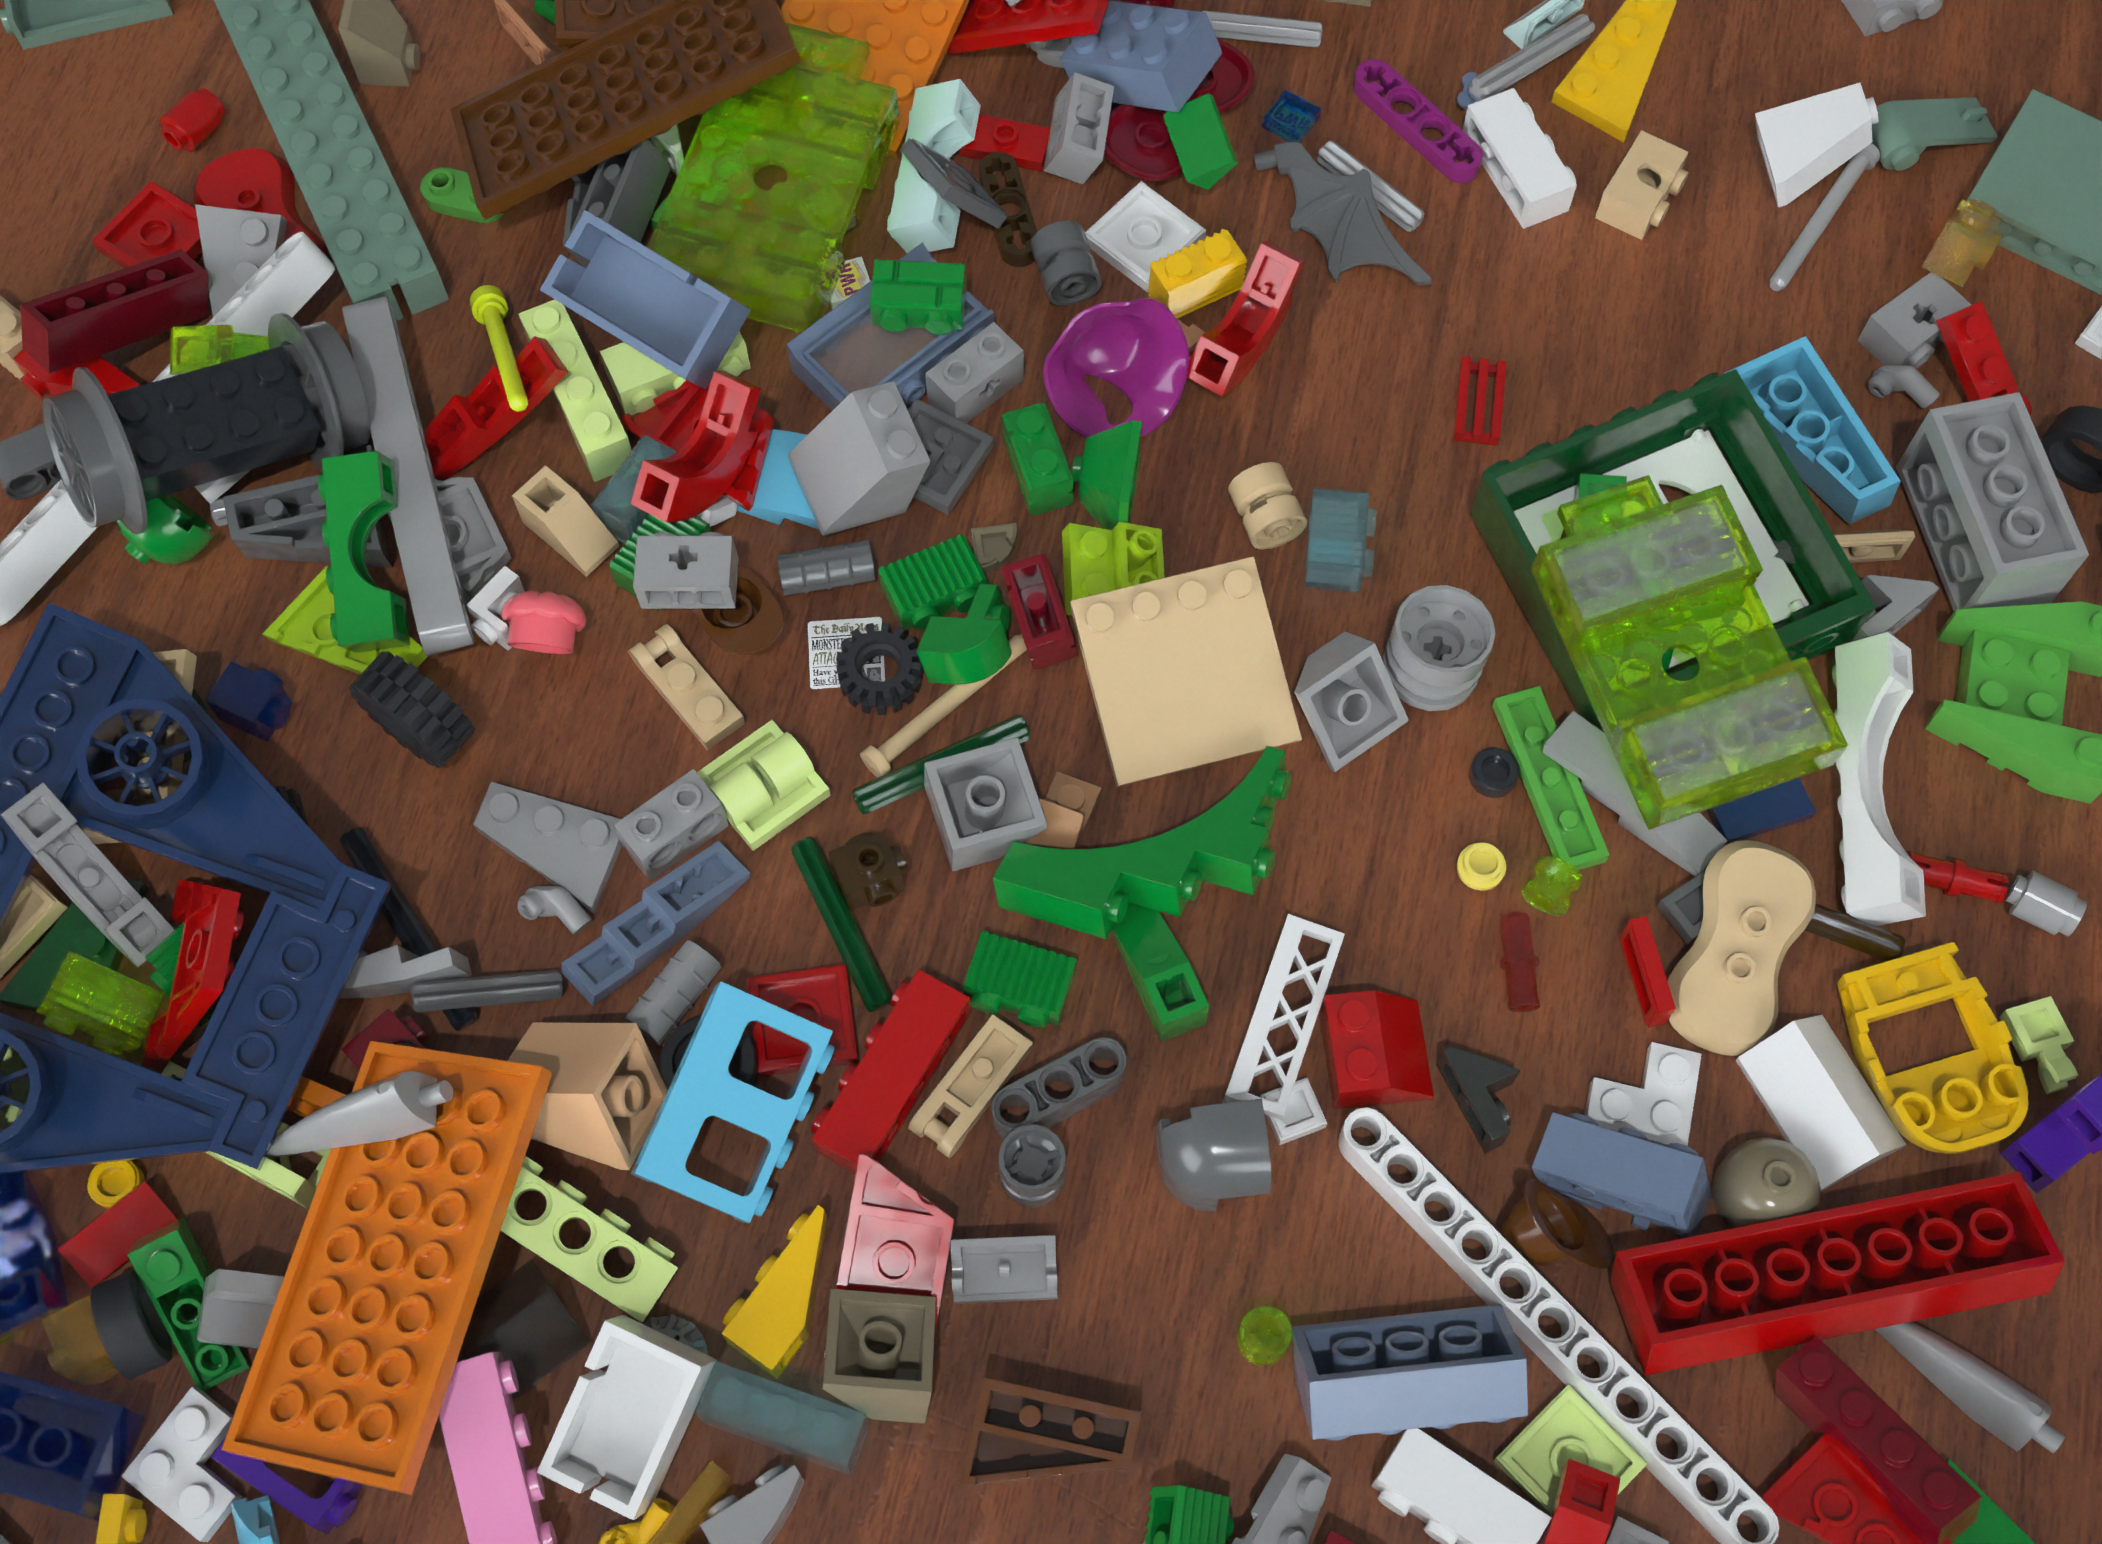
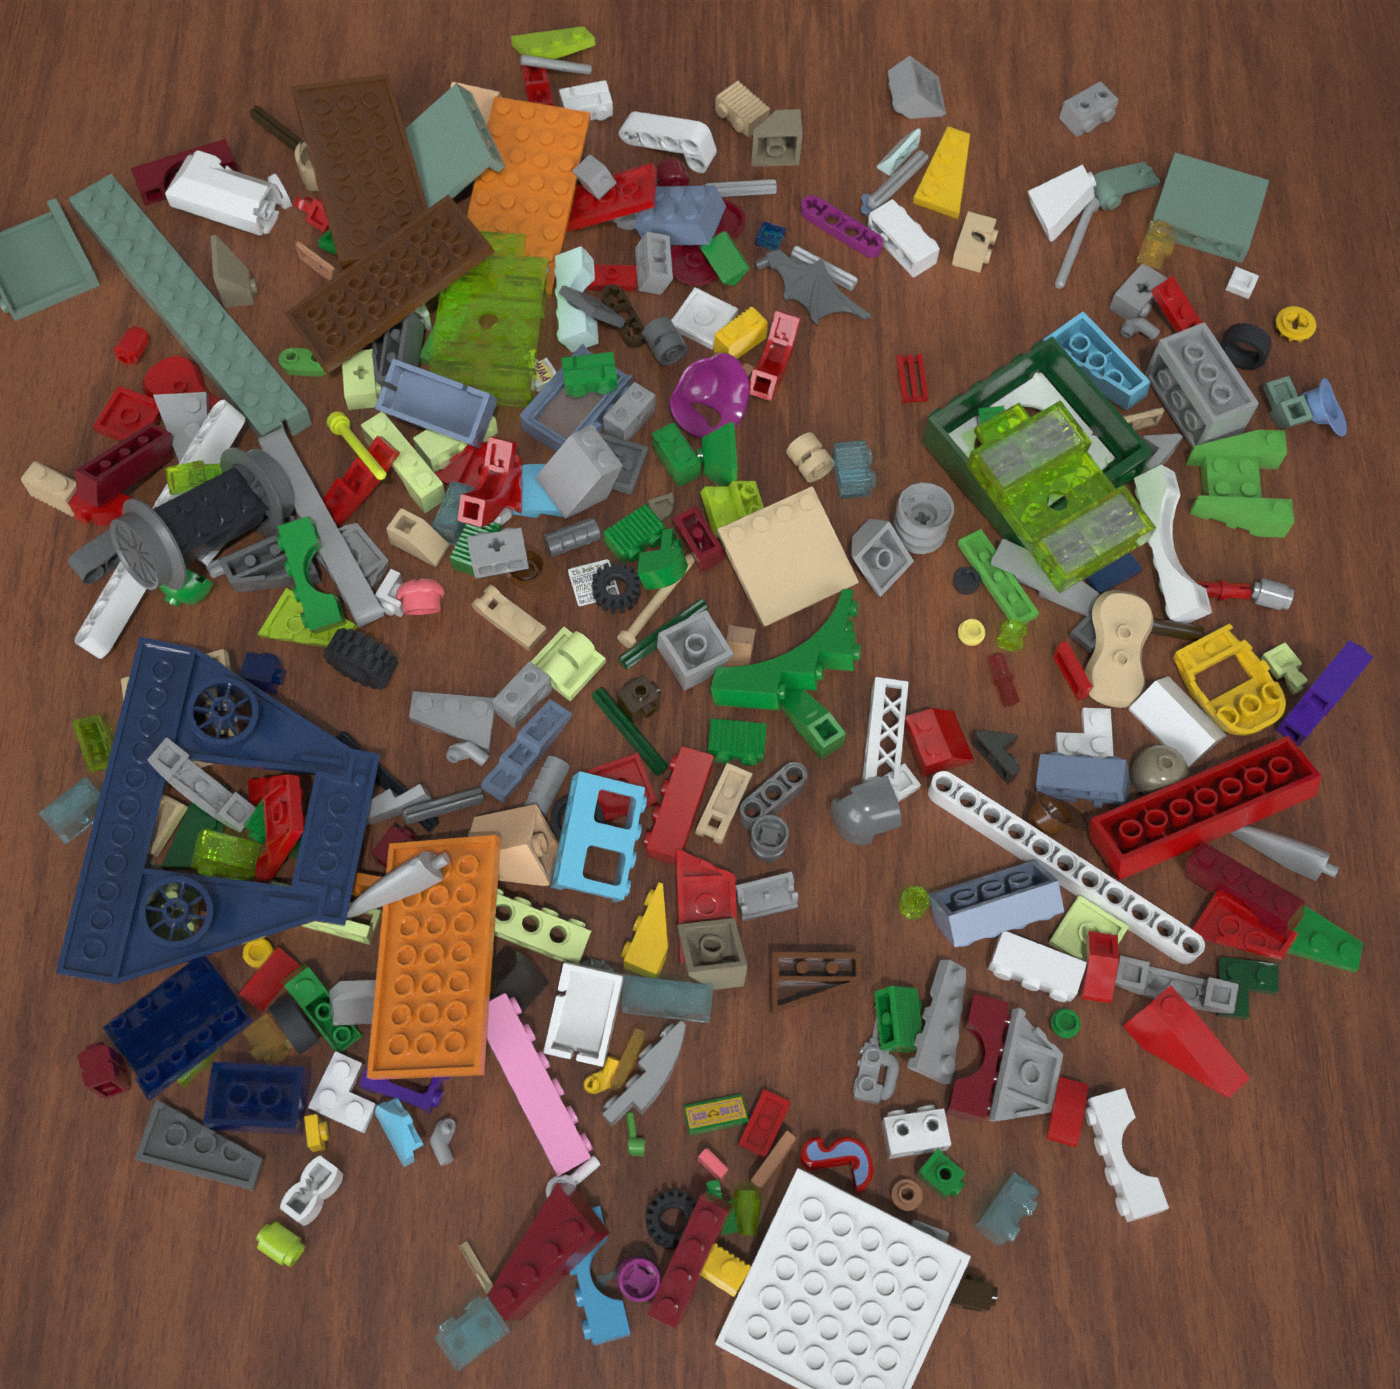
camera: 15 degrees left, 0 degrees up
(537, 238) = (359, 381): none -> yellowish green brick

